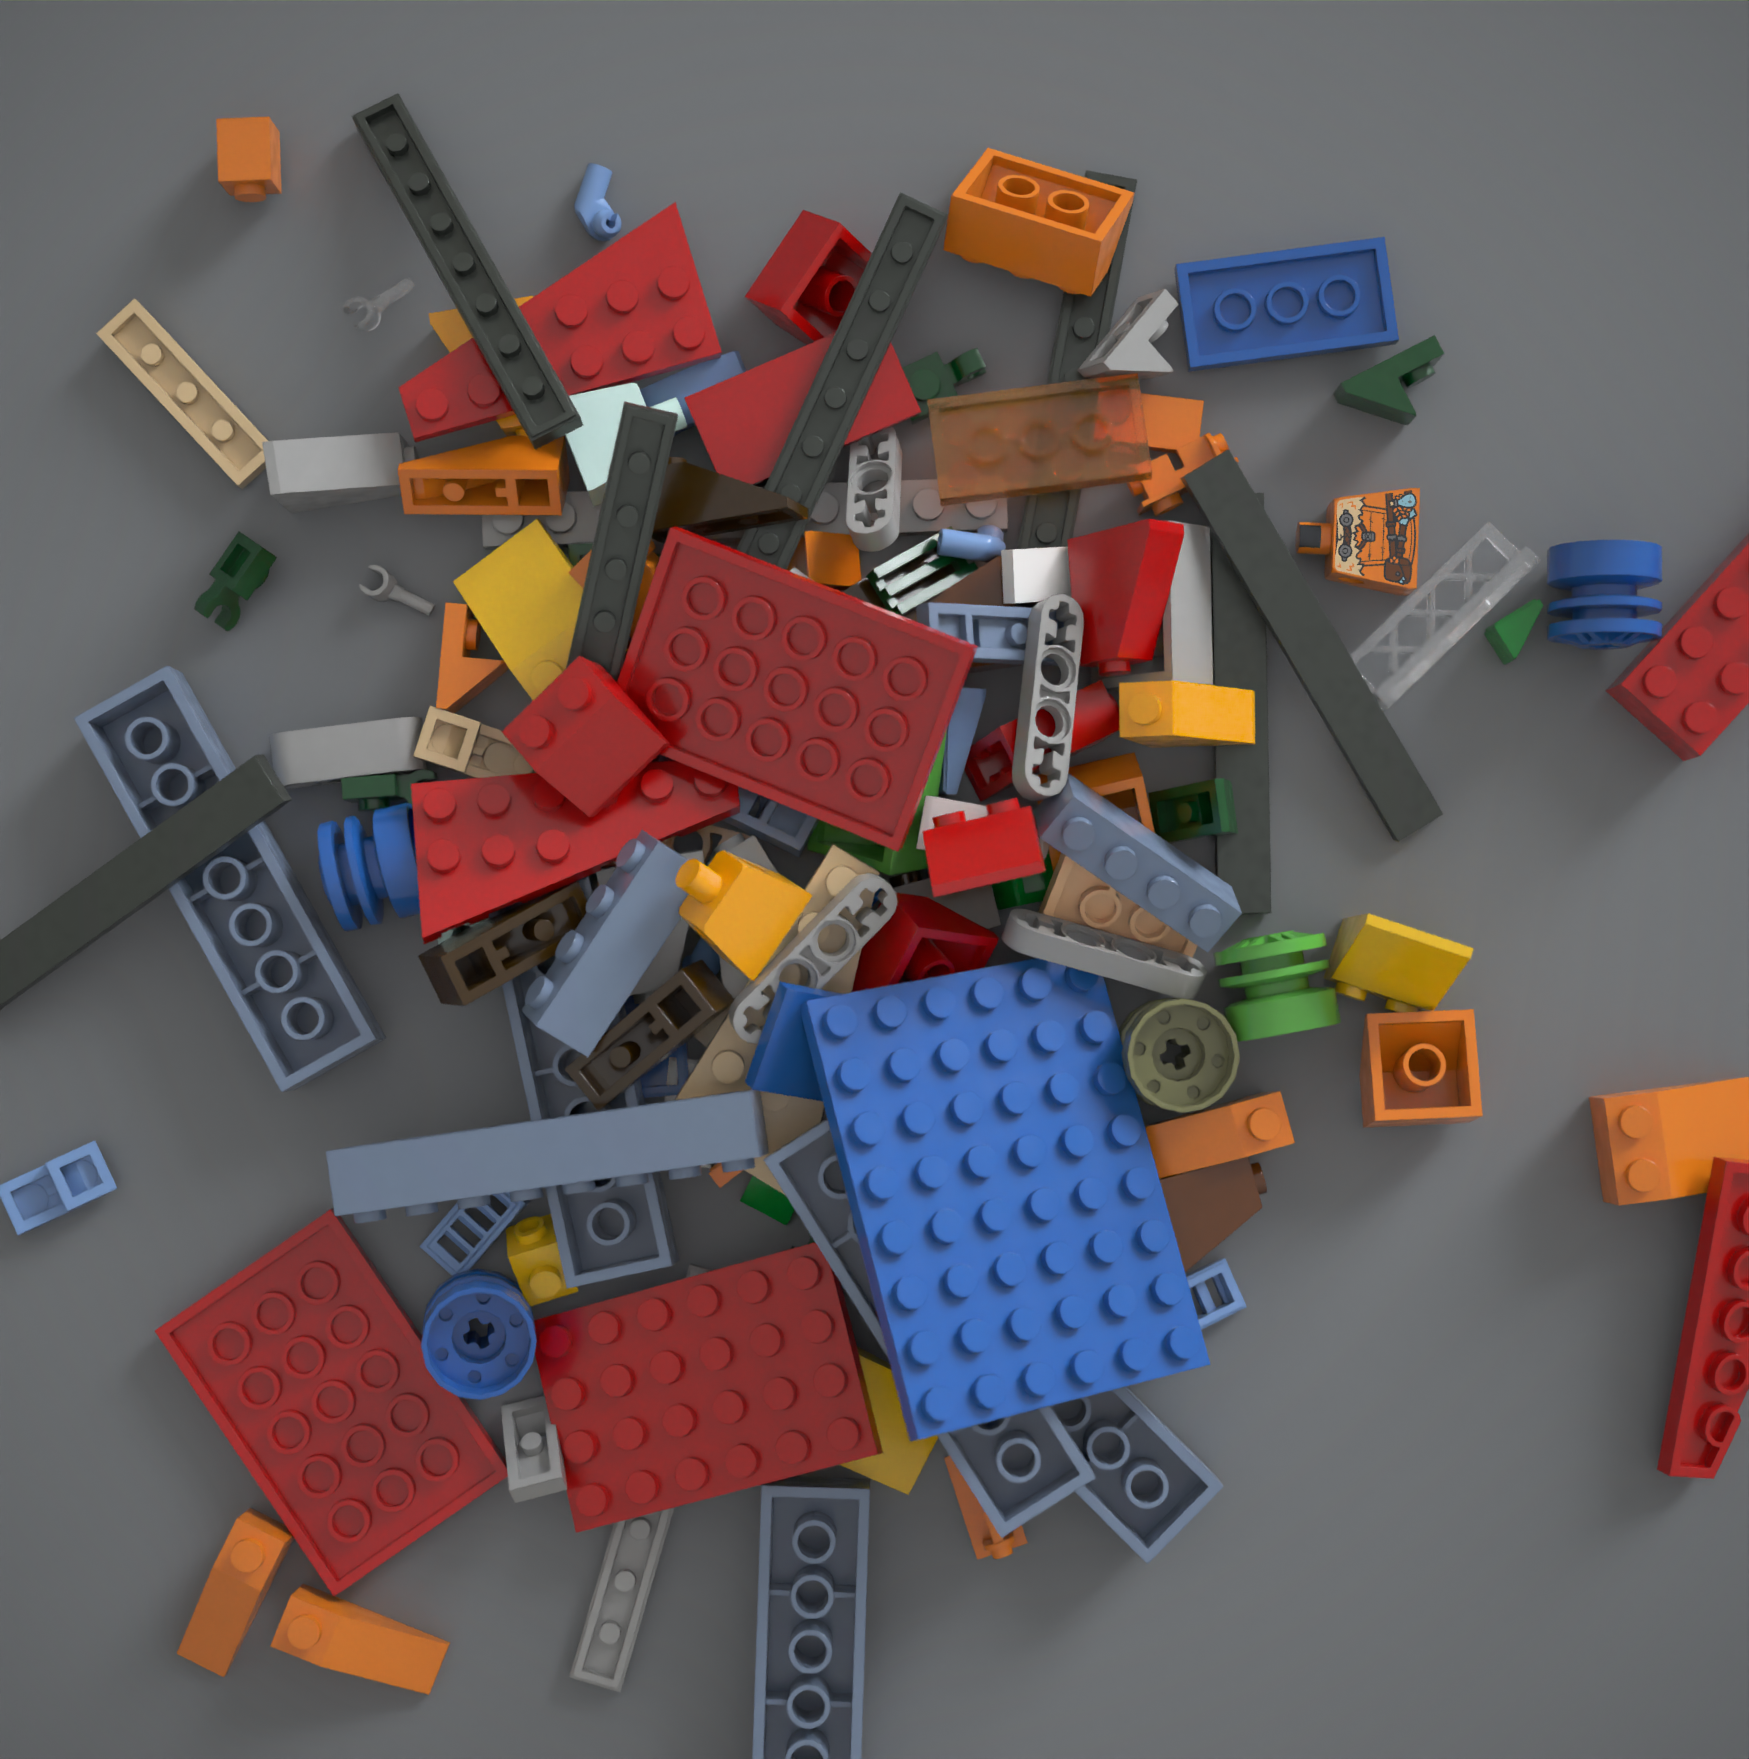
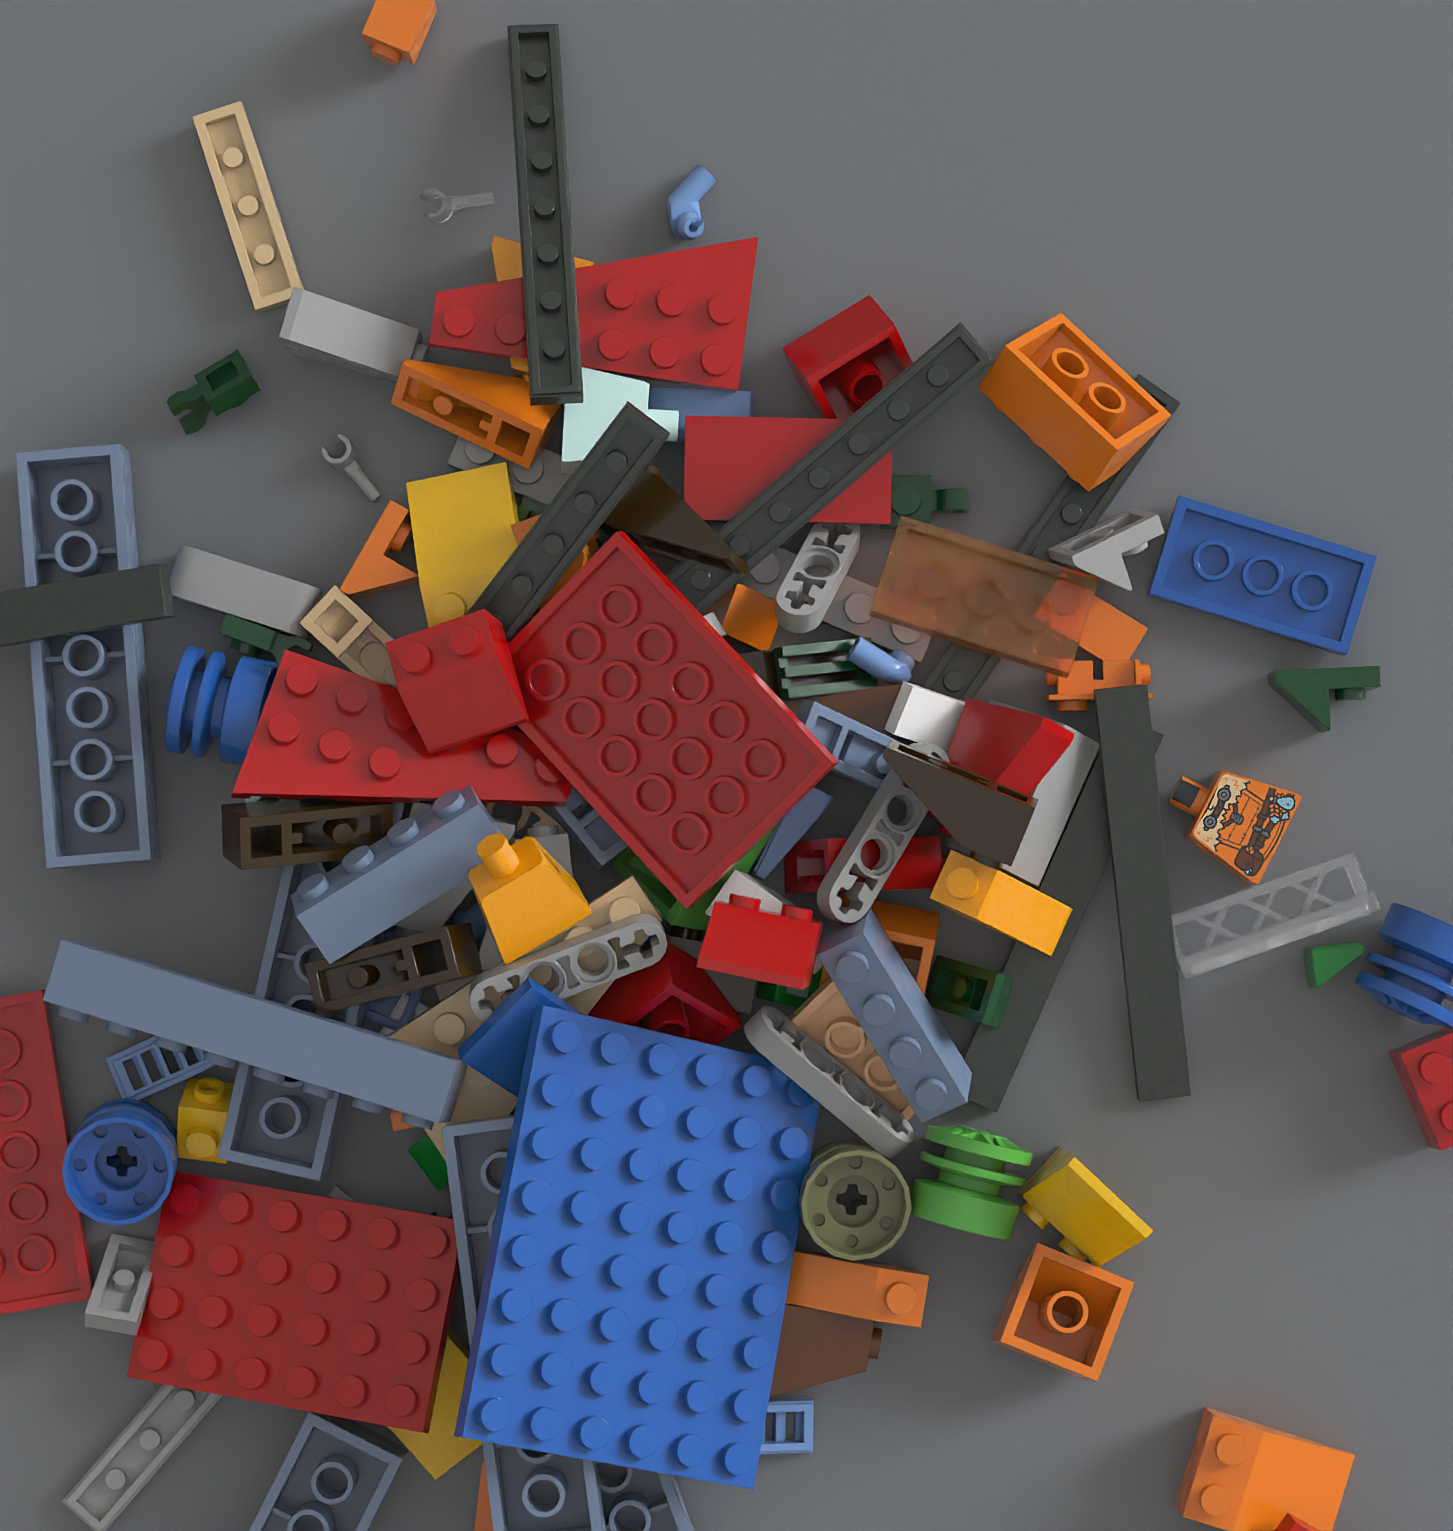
camera: 20 degrees right, 0 degrees up
(1125, 634) = (972, 808): none -> dark brown slope

